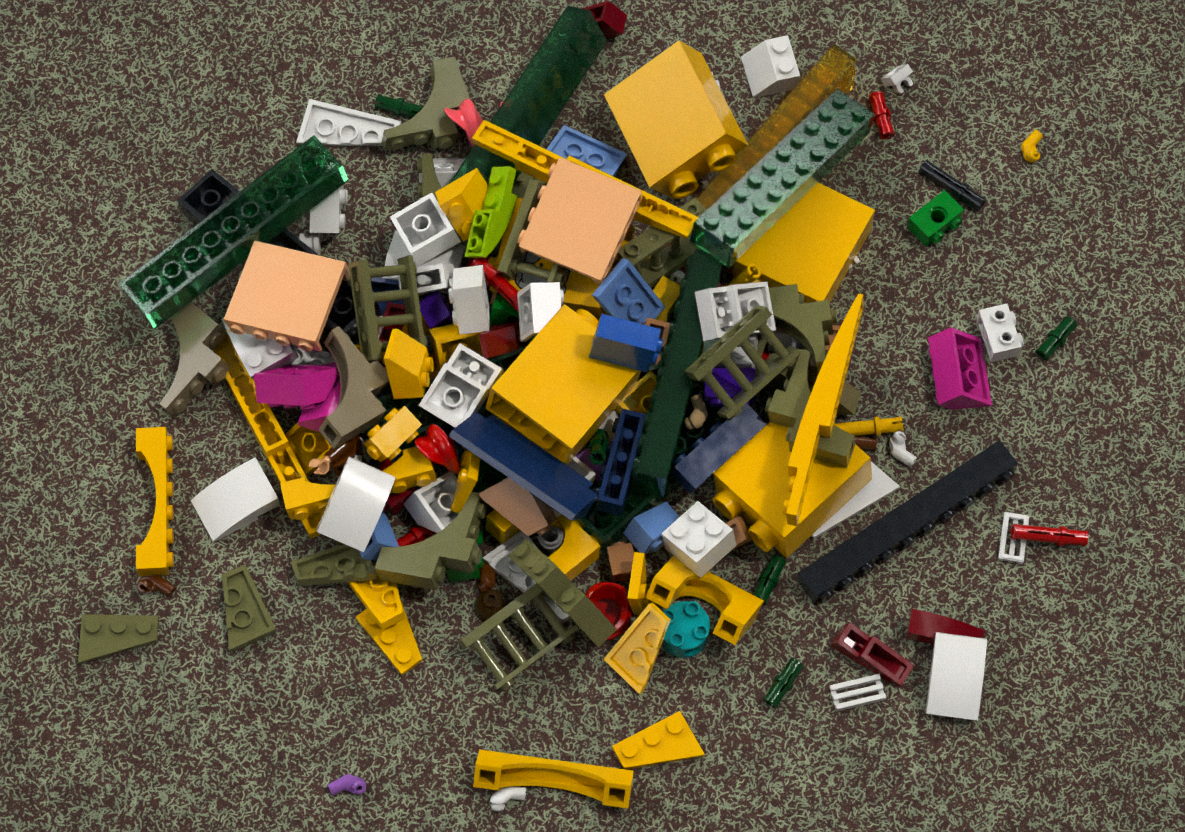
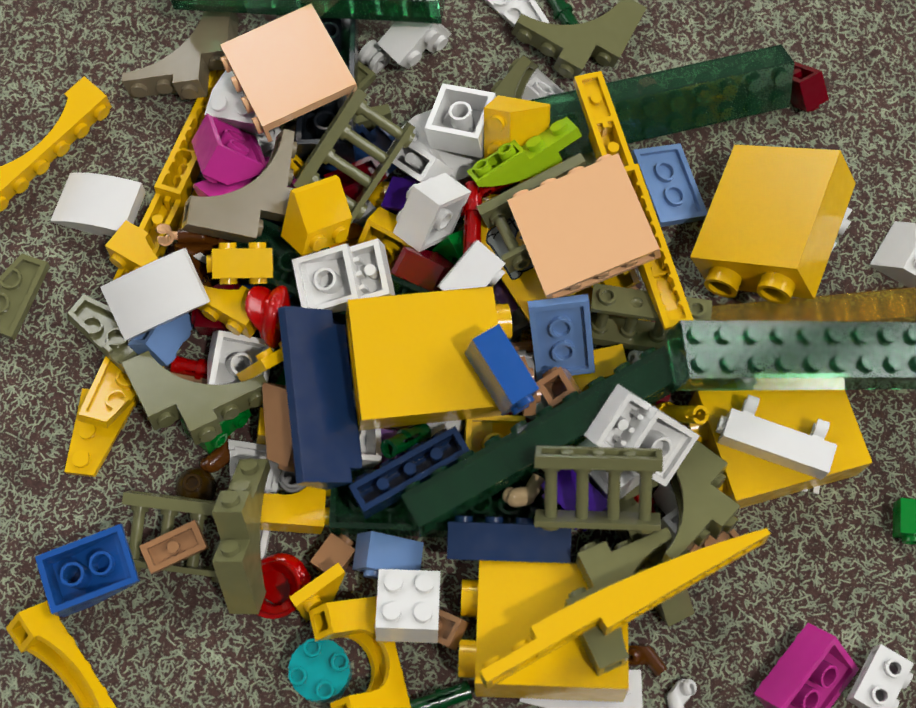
camera: 45 degrees right, 5 degrees up
(466, 117) = (599, 60): coral piece -> none
(487, 705) = (87, 571): none -> blue slope
(505, 794) = (27, 660): white arm -> none
(525, 641) = (174, 547): none -> medium nougat plate
(638, 647) = (263, 648): yellow wing -> none
(811, 247) = (776, 442): none -> white brick
(871, 427) = (669, 649): yellow pin -> none

